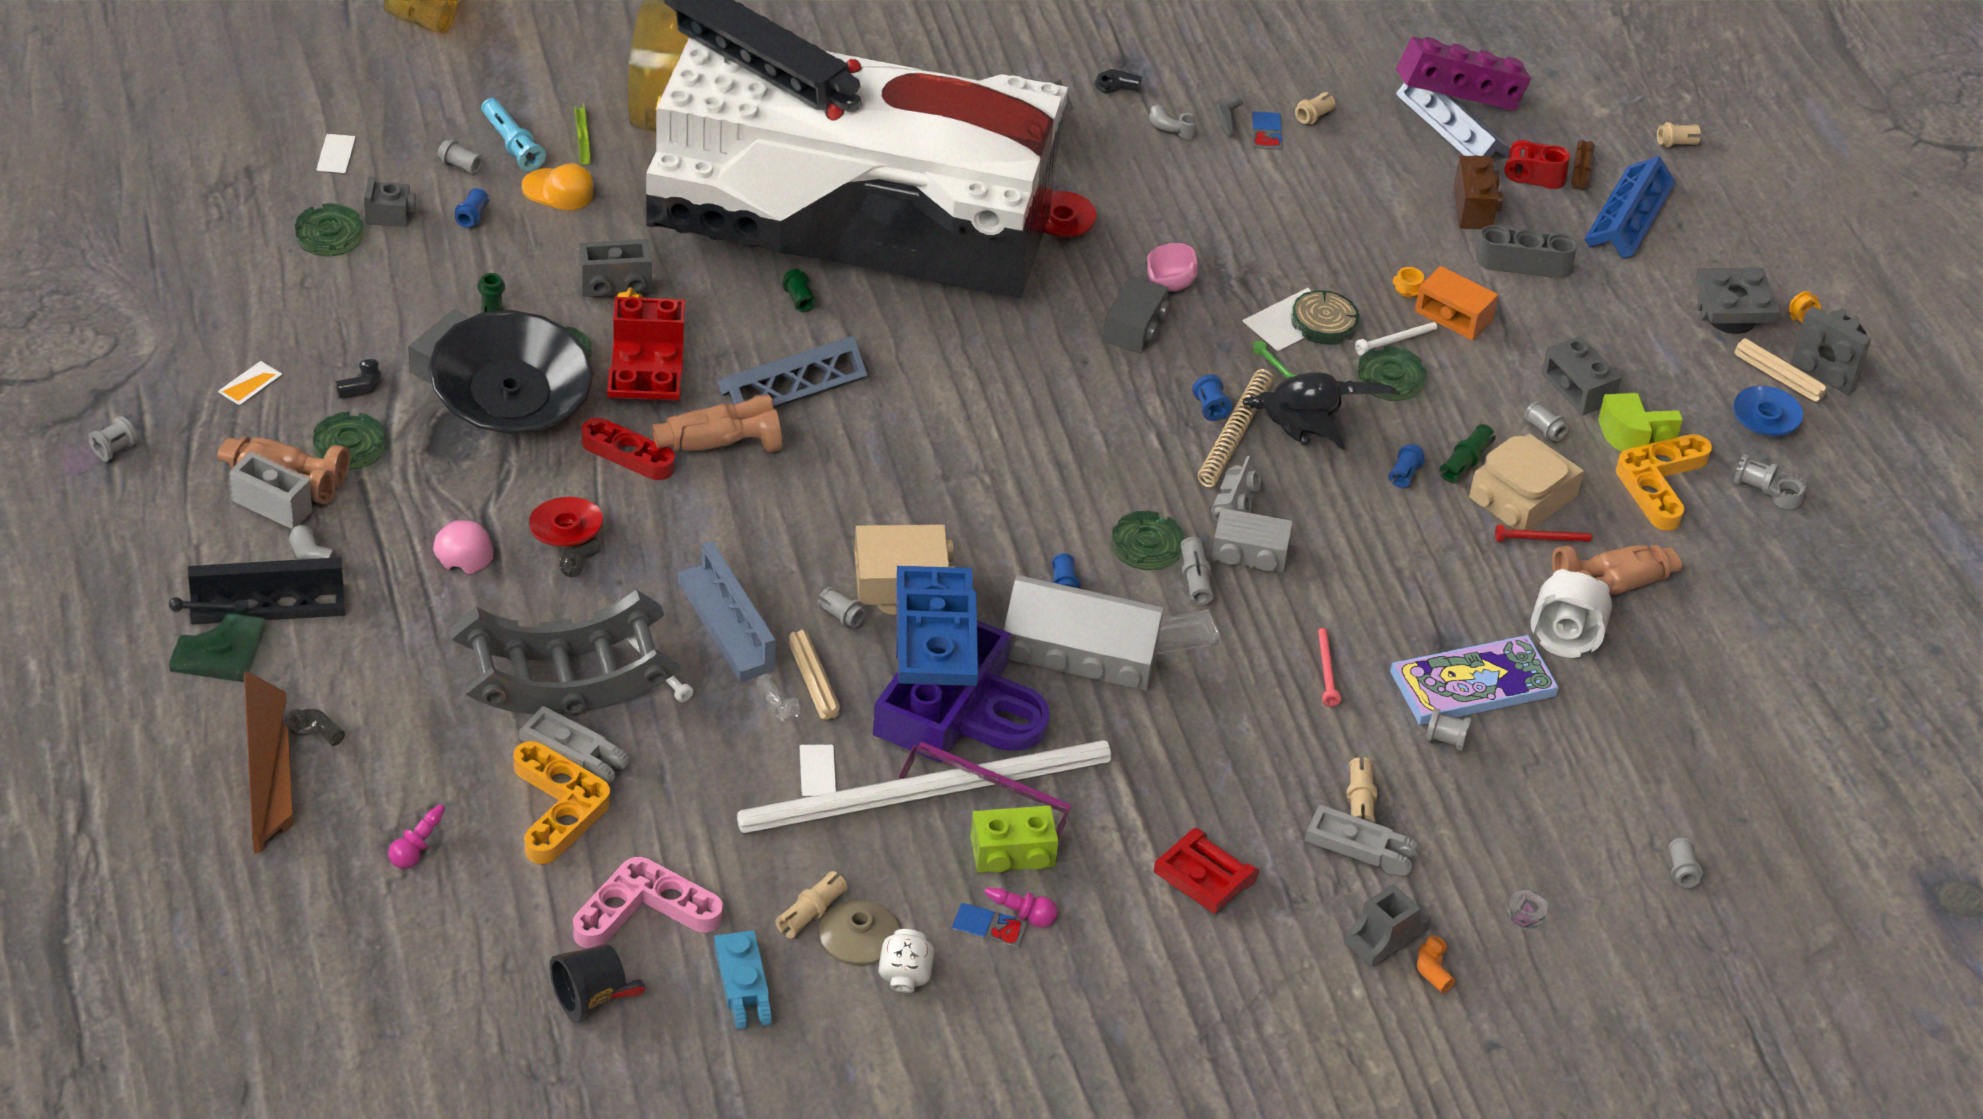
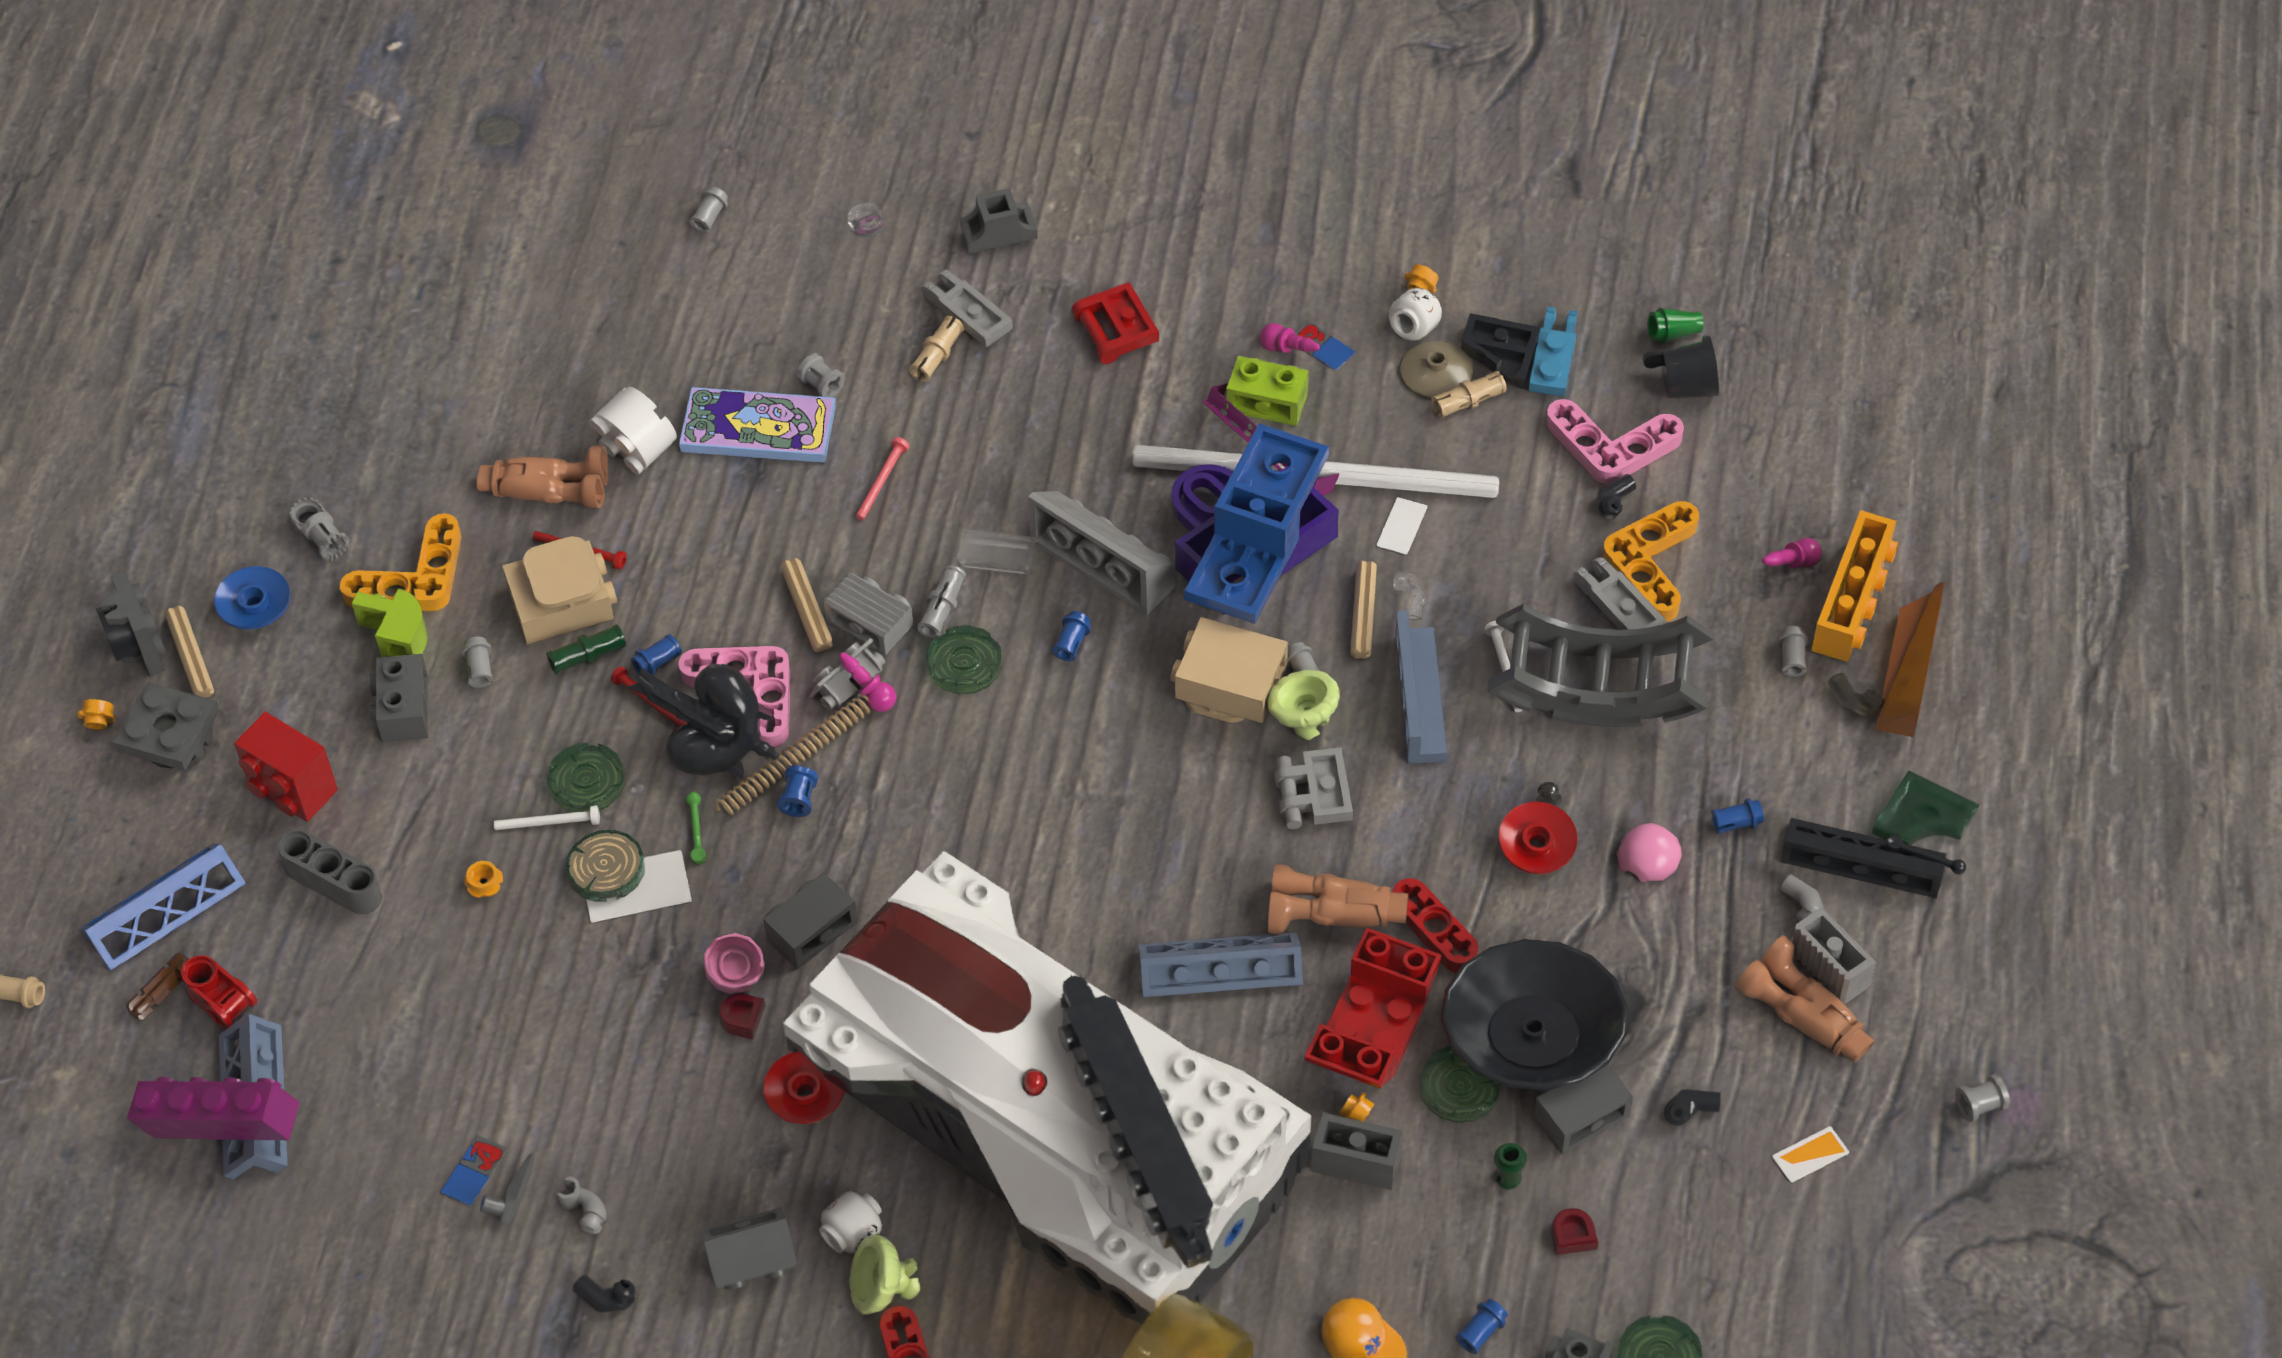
camera: 150 degrees left, 10 degrees up
(342, 803) = (1854, 585): none -> light orange brick
(360, 434) = (1725, 1032): clear green tile -> none
(388, 752) = (1793, 650): none -> light grey pin
(393, 593) = (1738, 816): none -> blue pin
(424, 284) = (1573, 1232): none -> dark red tile
(621, 842) = (1610, 496): none -> black arm
(627, 1039) = (1673, 324): none -> green cone
(772, 519) = (1326, 784): none -> light grey plate
(801, 962) = (1501, 346): none -> black wing
(821, 551) = (1304, 701): none -> yellowish green hair
(919, 1017) = (1421, 277): none -> light orange plate
(1138, 254) = (741, 1014): none -> dark red tile
(1198, 483) = (880, 694): none -> dark pink bar
(1309, 110) = (402, 1167): tan pin -> none
(1318, 544) = (806, 605): none -> tan axle
(1358, 471) = (756, 671): none -> bright pink beam
(1381, 438) = (620, 676): none -> red piece
(1430, 964) = (979, 186): orange arm -> none
(1456, 302) = (456, 827): orange brick -> none
(1477, 192) = (320, 965): reddish brown brick -> none
(1618, 288) = (285, 767): none -> red brick

